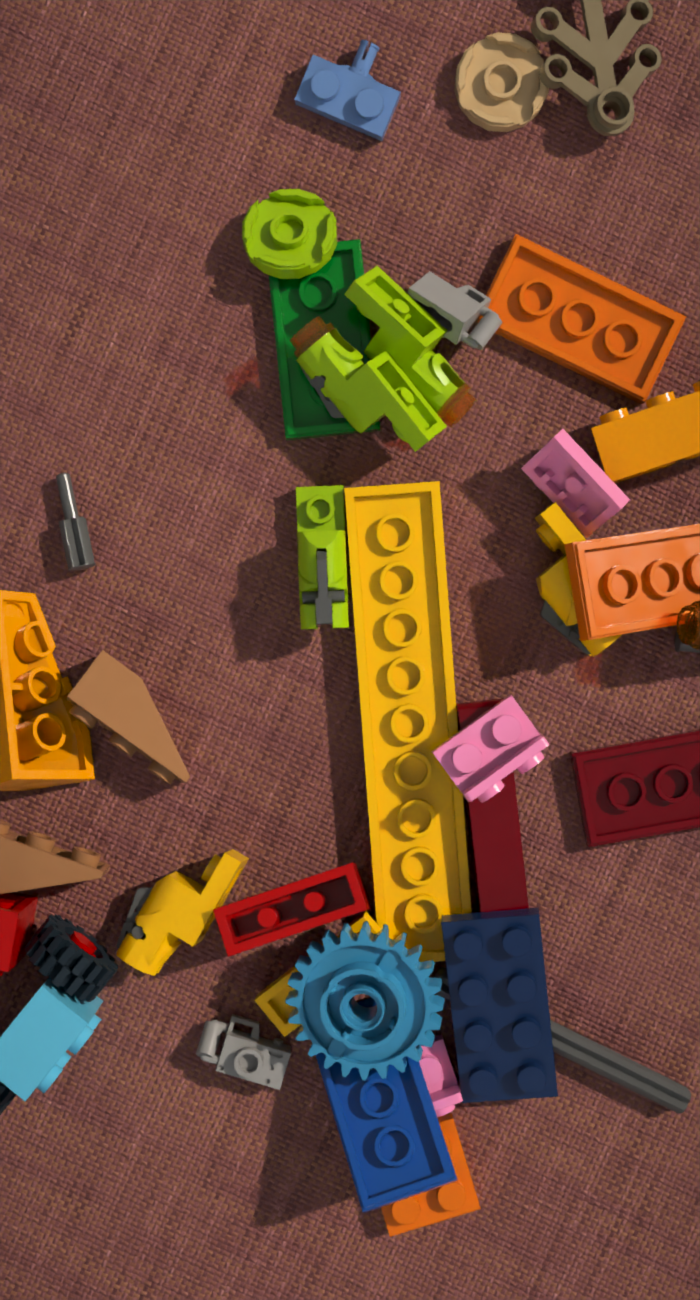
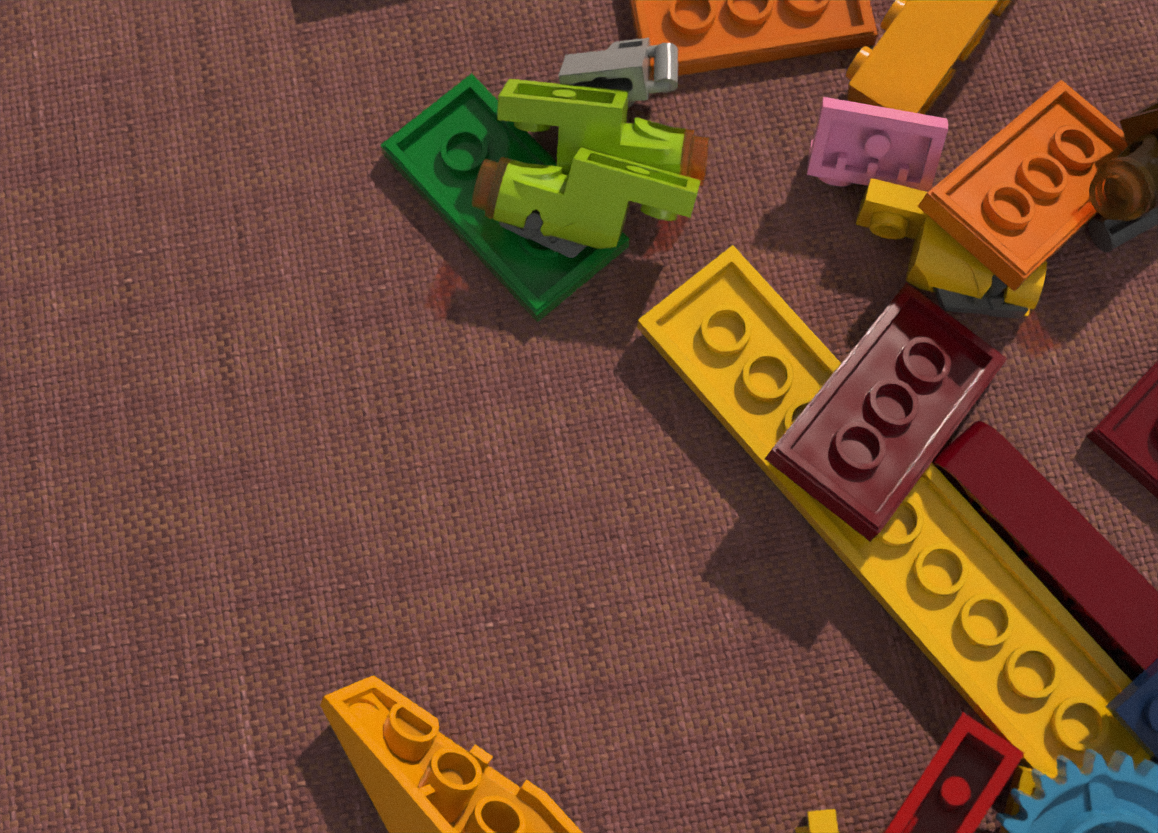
camera: 30 degrees left, 15 degrees down
(73, 528) = (370, 570): dark grey axle -> none
(123, 706) = (567, 728): medium nougat slope -> none
(289, 234) = (395, 113): lime tile -> none
(322, 557) = (668, 409): lime plate -> none
(453, 654) = (886, 411): none -> dark red tile
(491, 750) = (1014, 476): bright pink bracket -> none

